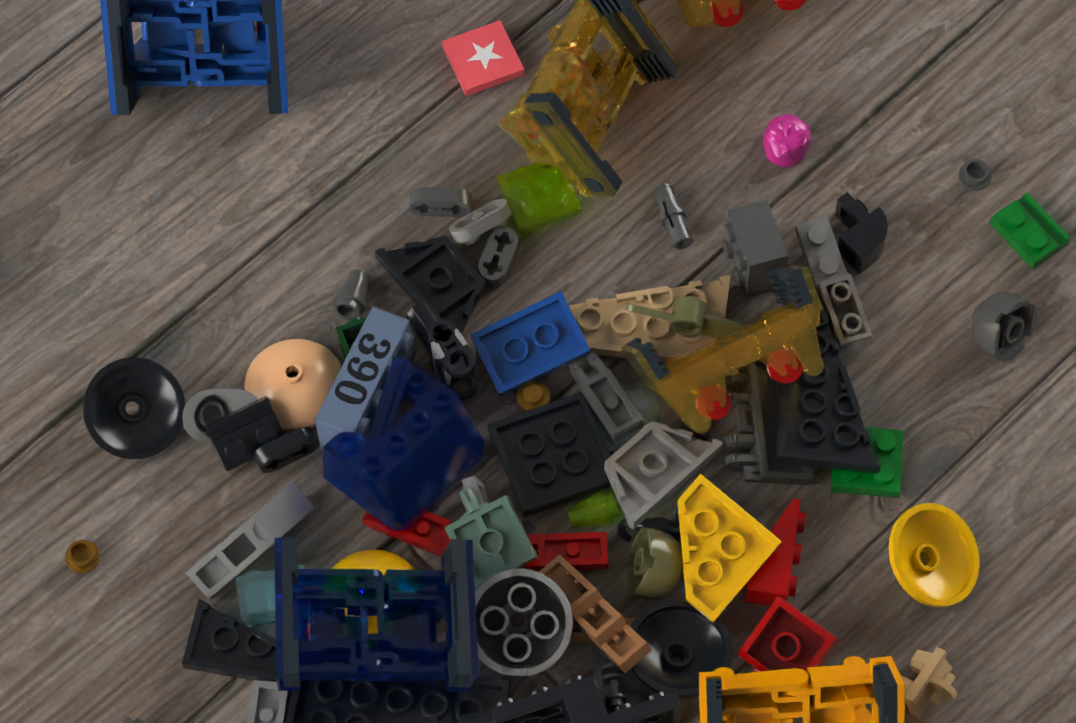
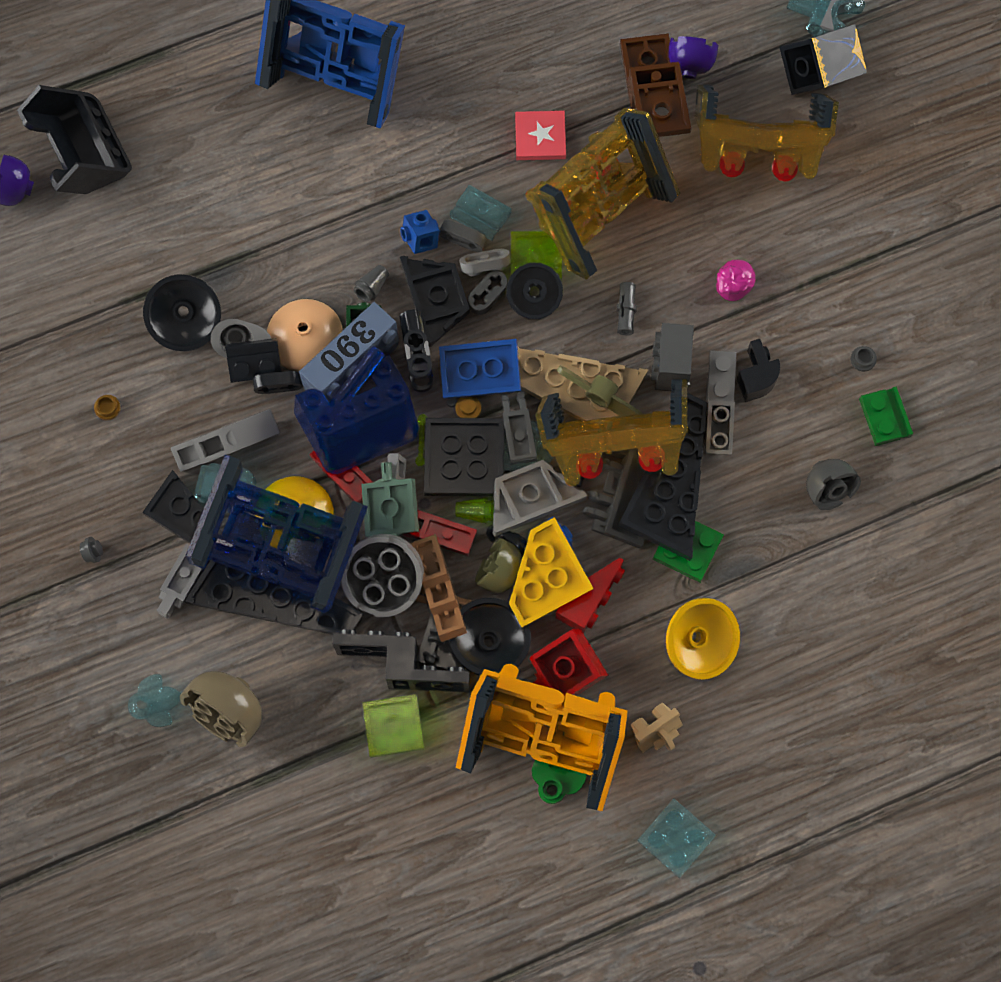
camera: 20 degrees right, 10 degrees up
(388, 213) = (420, 231): none -> blue brick
(449, 167) = (480, 212): none -> clear light blue plate
(500, 478) = (420, 460): none -> clear neon green hinge
(571, 218) = (549, 288): none -> black wheel

